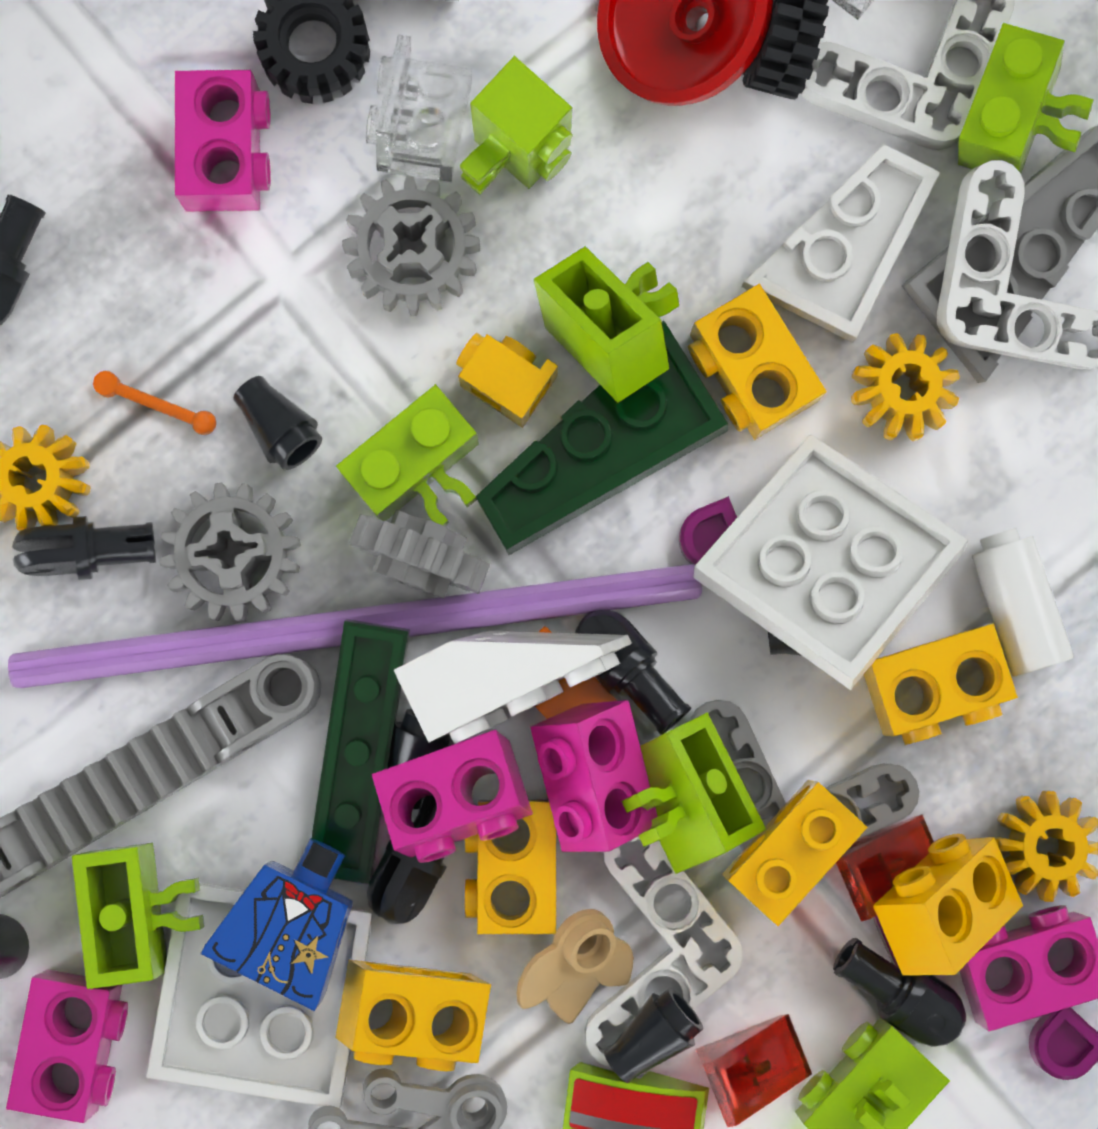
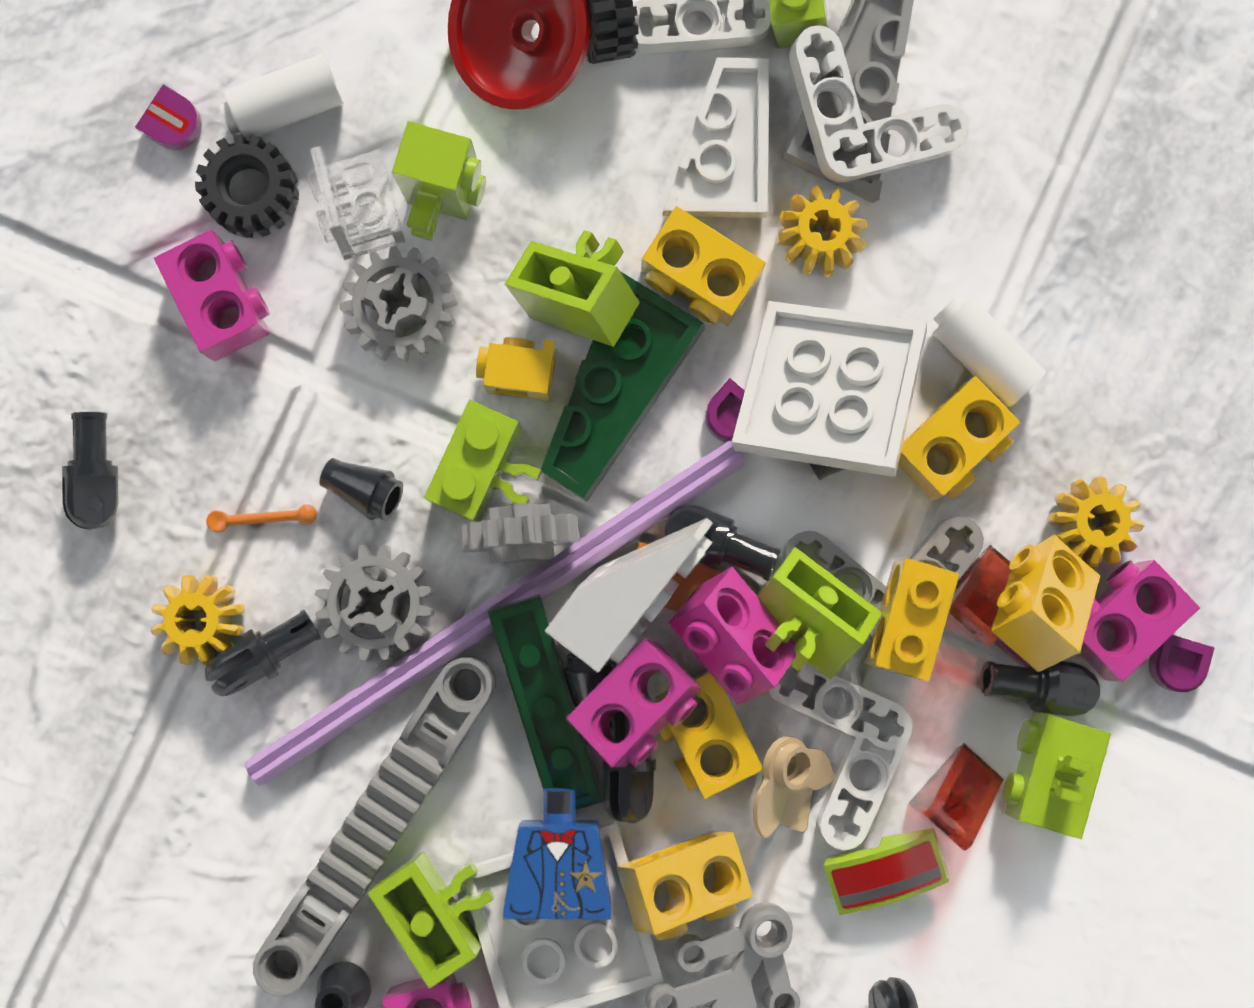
camera: 25 degrees left, 0 degrees up
(655, 1034) = (875, 807): black cone -> none

